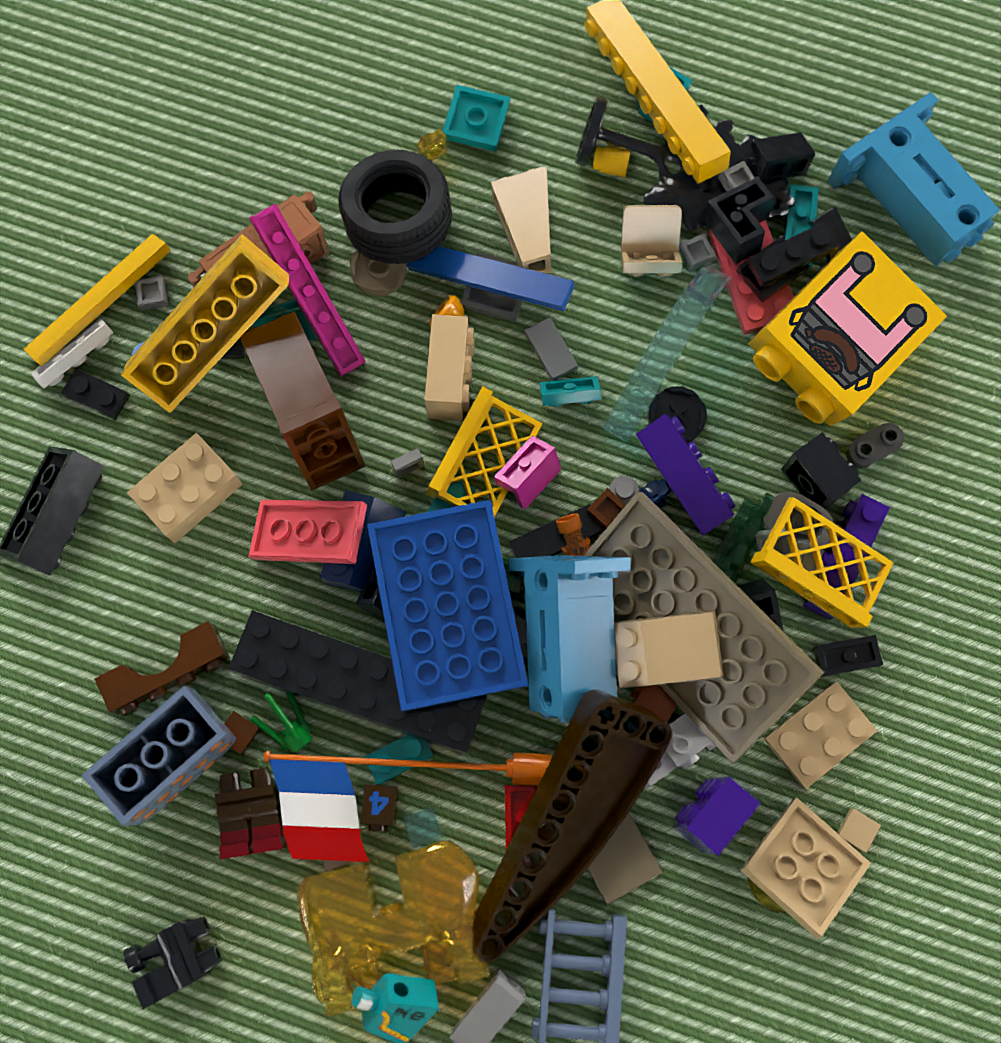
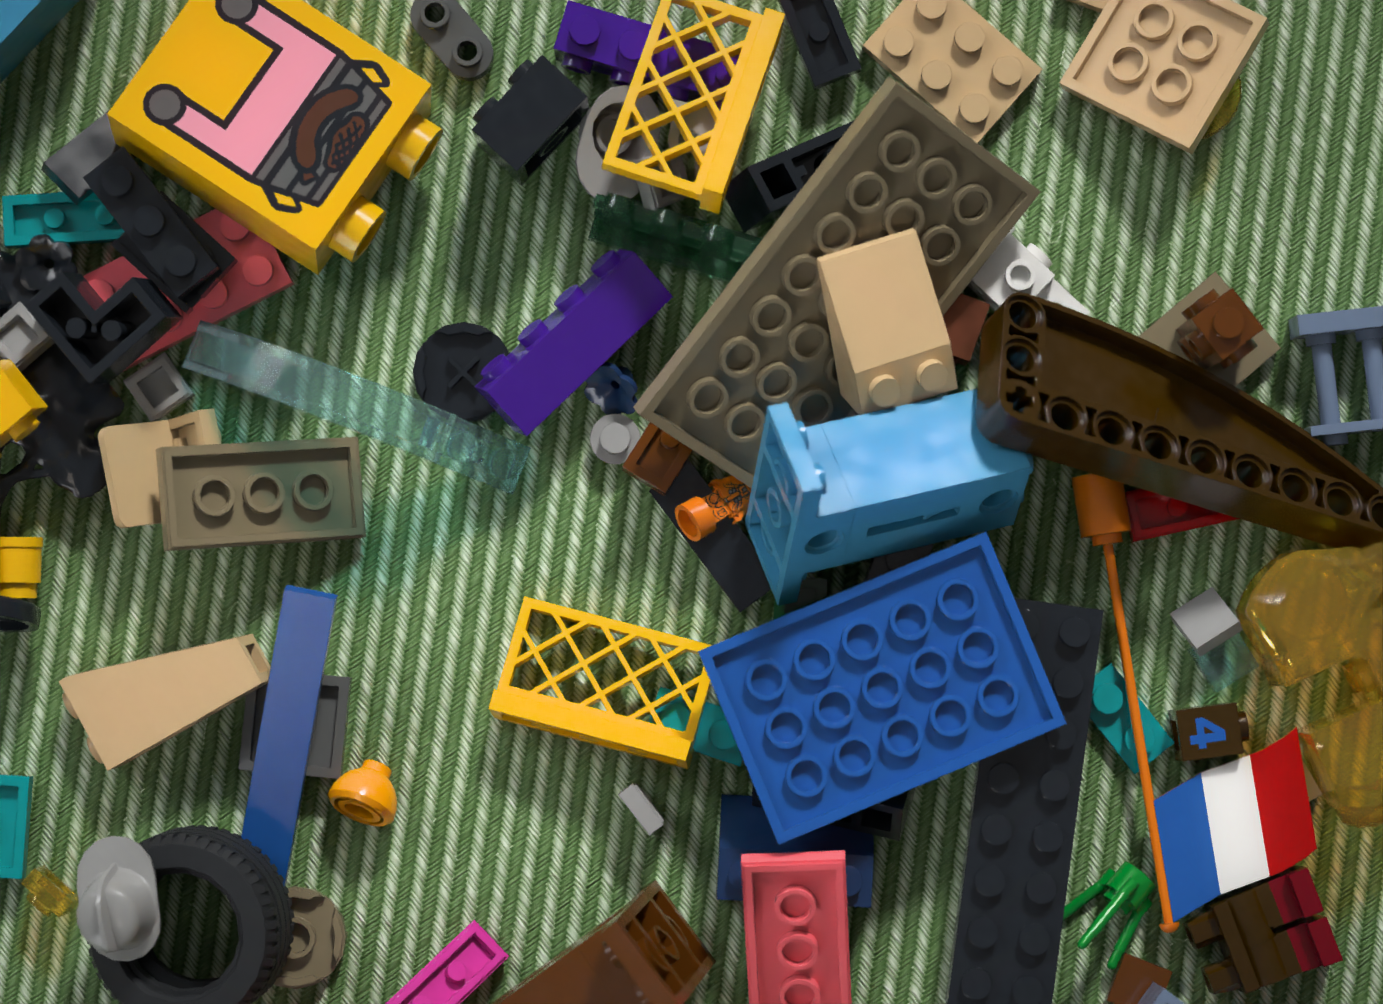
camera: 105 degrees left, 10 degrees up
(416, 163) = (118, 899): none -> light grey piece
(446, 819) = (1206, 621): none -> light grey tile
(449, 367) = (466, 771): tan brick -> none
(529, 471) = (616, 602): dark pink panel -> none
(551, 349) = (388, 607): light grey tile -> none
(570, 391) = (460, 560): teal plate -> none
(626, 861) = (1218, 330): none -> reddish brown brick
(628, 287) = (260, 493): none -> dark tan tile
(715, 814) = (1122, 207): dark purple brick -> none

